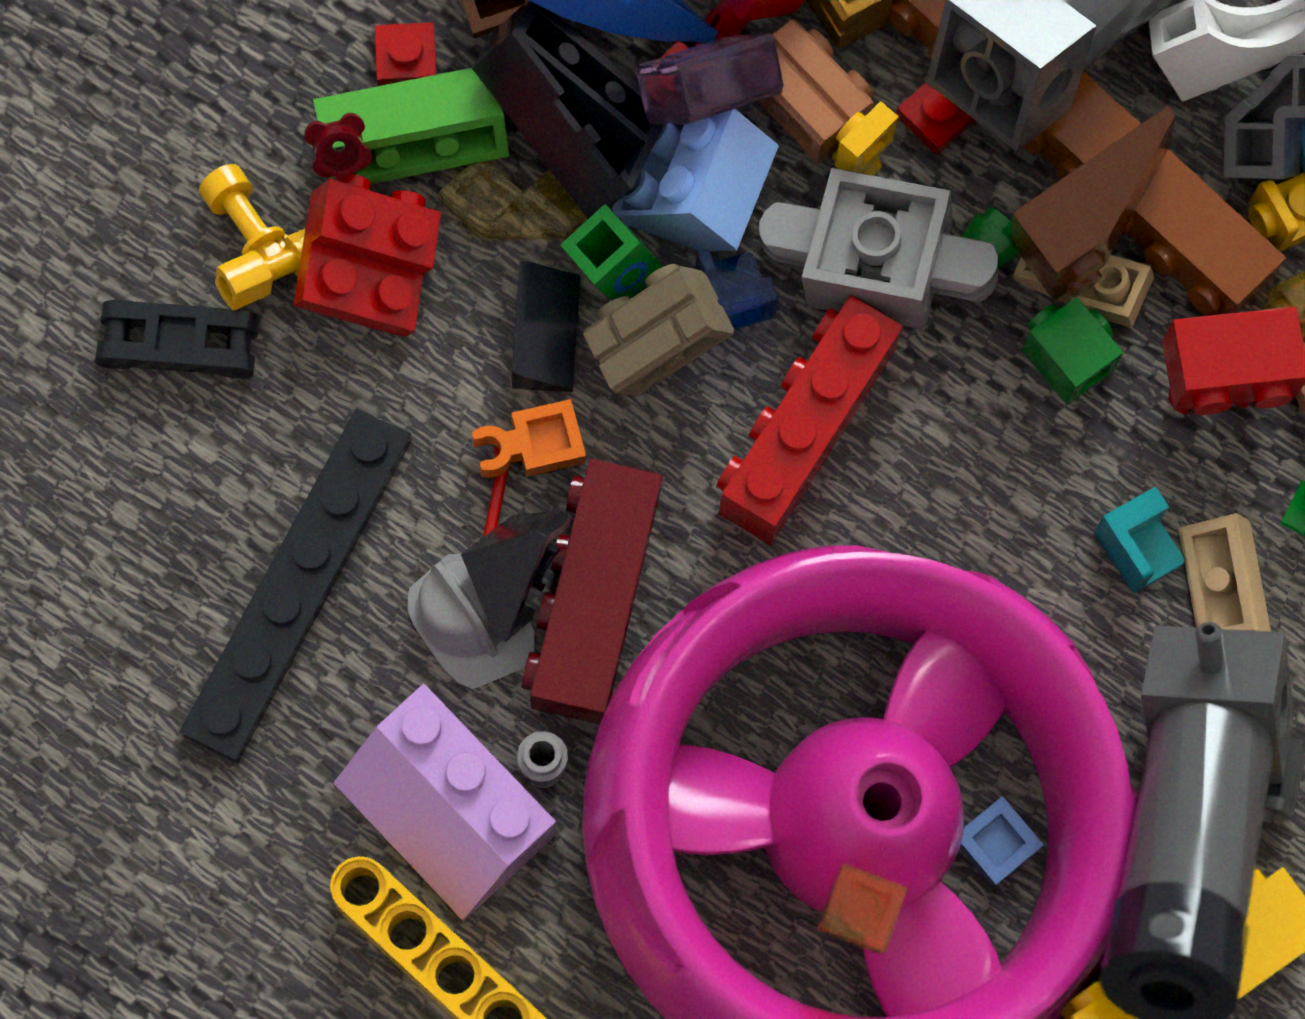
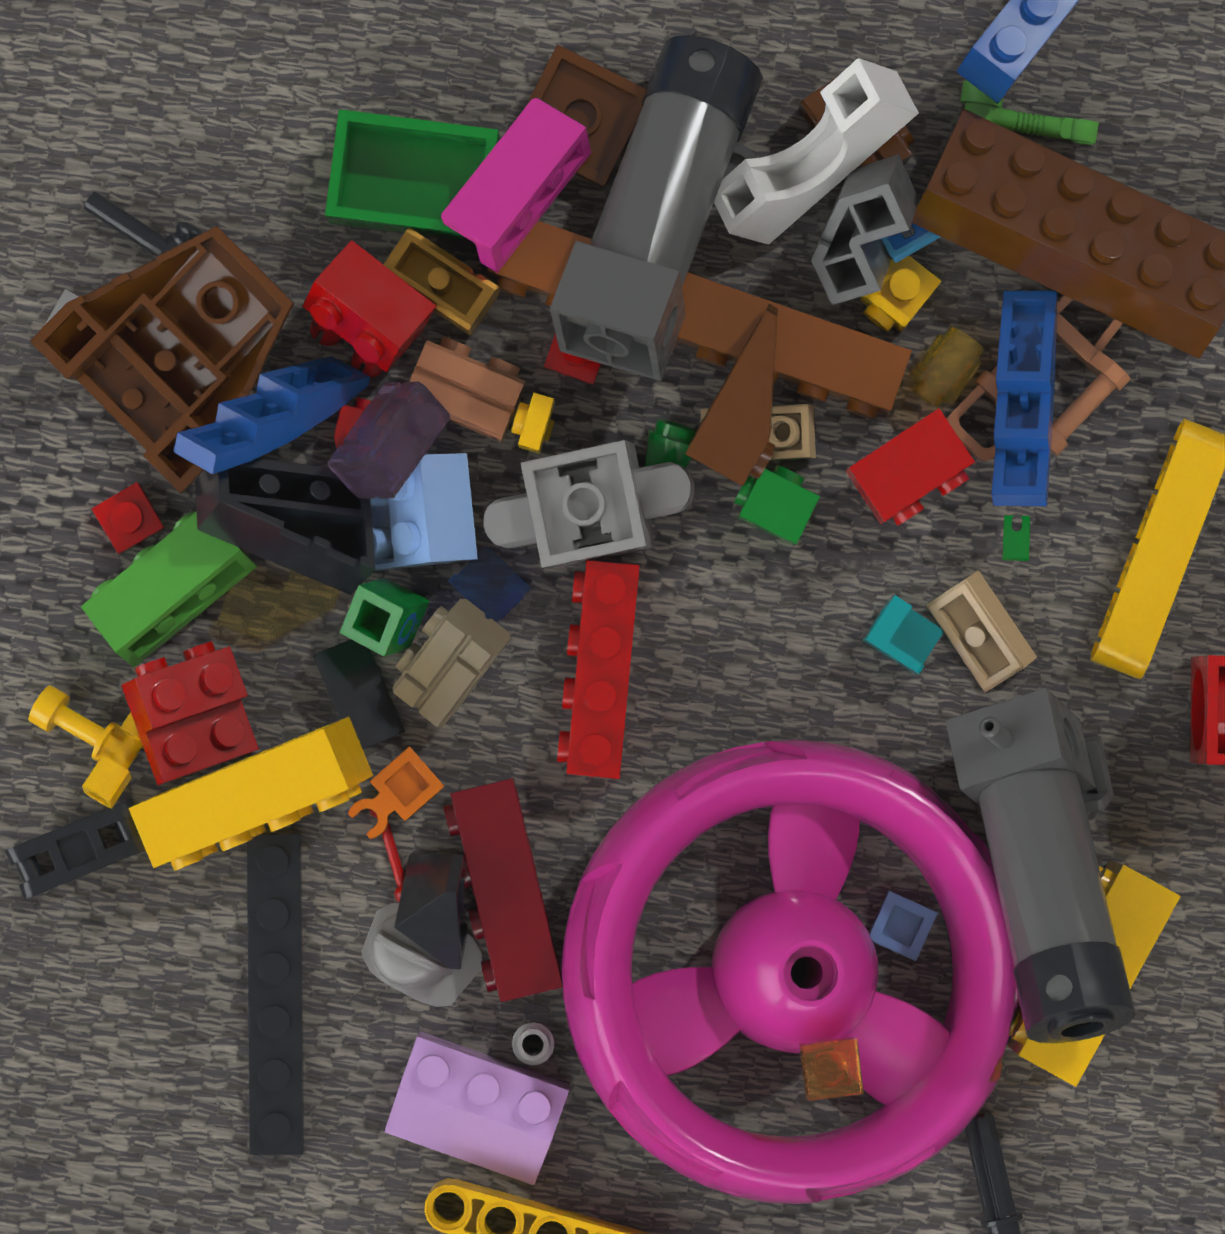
camera: 20 degrees left, 15 degrees up
(340, 162) = (128, 649): dark red plate -> none
(386, 350) = (258, 790): none -> yellow brick

